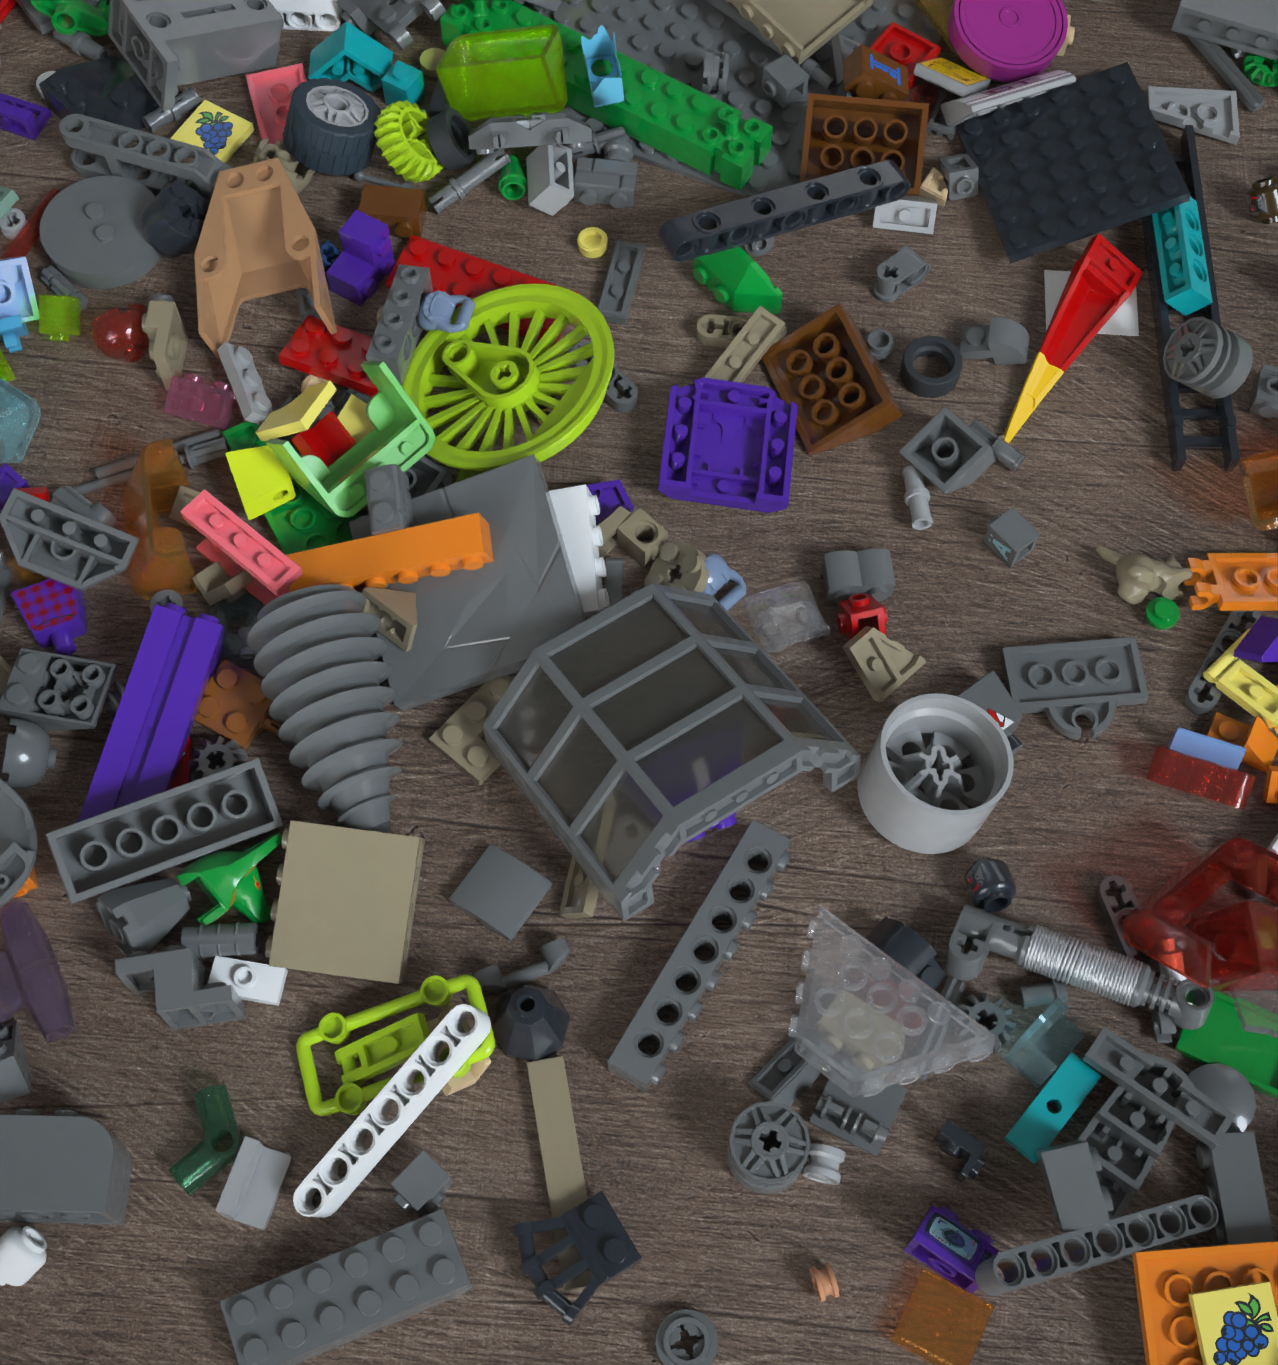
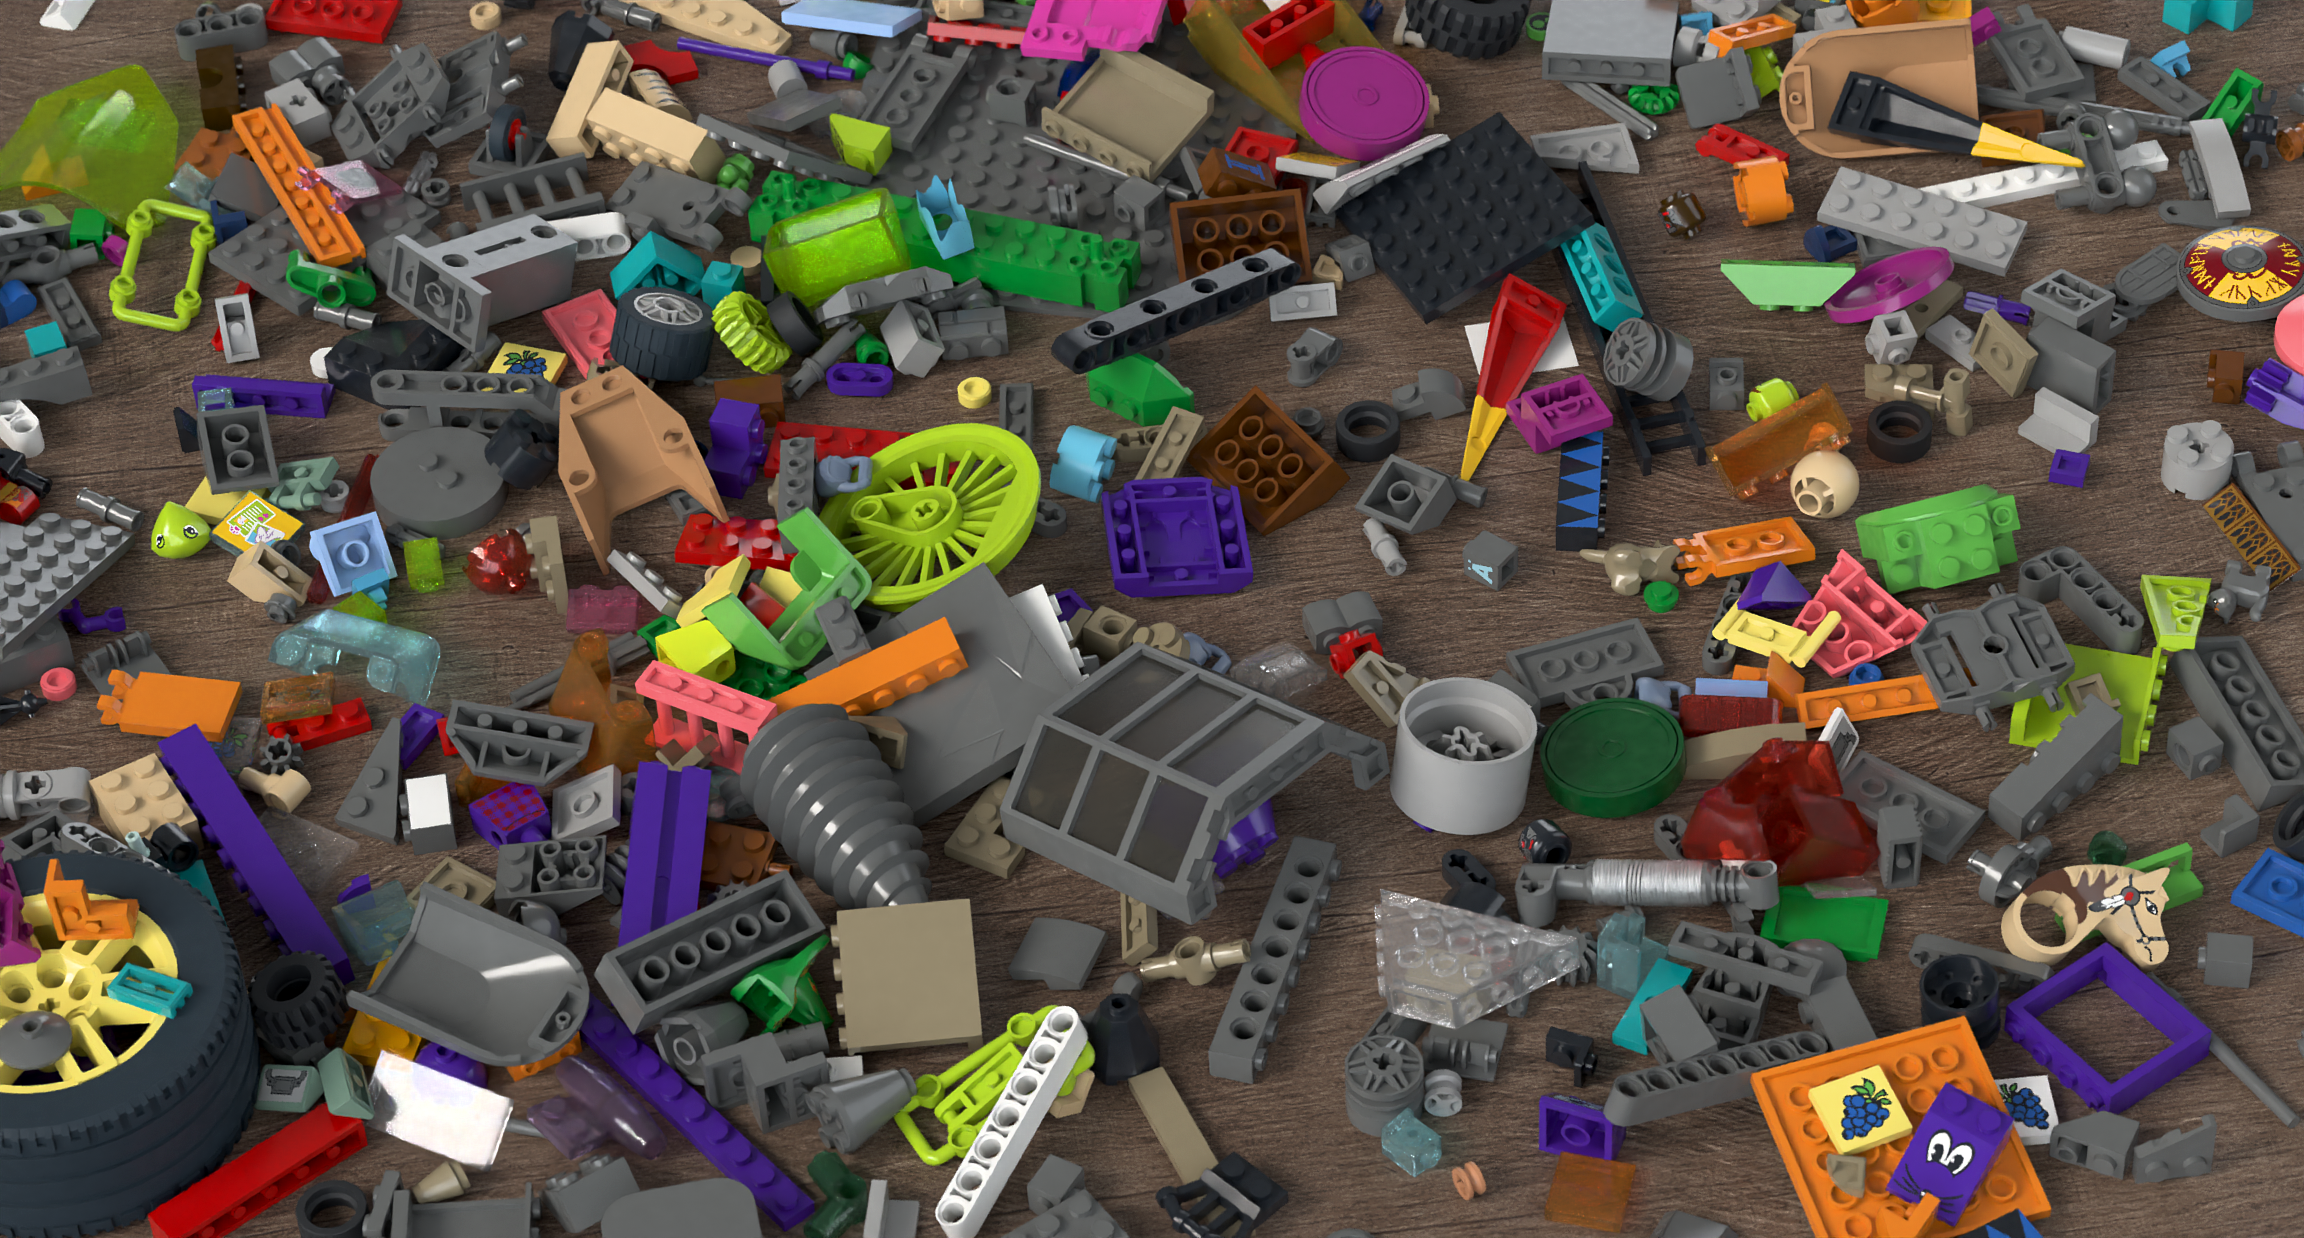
camera: 10 degrees left, 20 degrees down
(116, 1009) = (694, 1116): none -> dark purple plate
(119, 616) = (587, 805): none -> light grey tile
(260, 1040) = (859, 1106): none -> dark grey cone
(496, 207) = (860, 379): none -> dark purple plate
(638, 944) = (1195, 960): none -> dark tan pin
(664, 345) = (1083, 463): none -> medium azure brick
(764, 1216) = (1411, 1143): none -> clear light blue brick
(916, 896) = (1473, 869): none -> black beam
(1078, 797) = (1613, 757): none -> dark green brick
(1111, 393) = (1559, 413): none -> magenta bracket
(1111, 479) = (1580, 493): none -> black brick
(1130, 733) = (1659, 692): none -> sand blue piece
(1195, 816) = (1722, 752): none -> dark tan slope

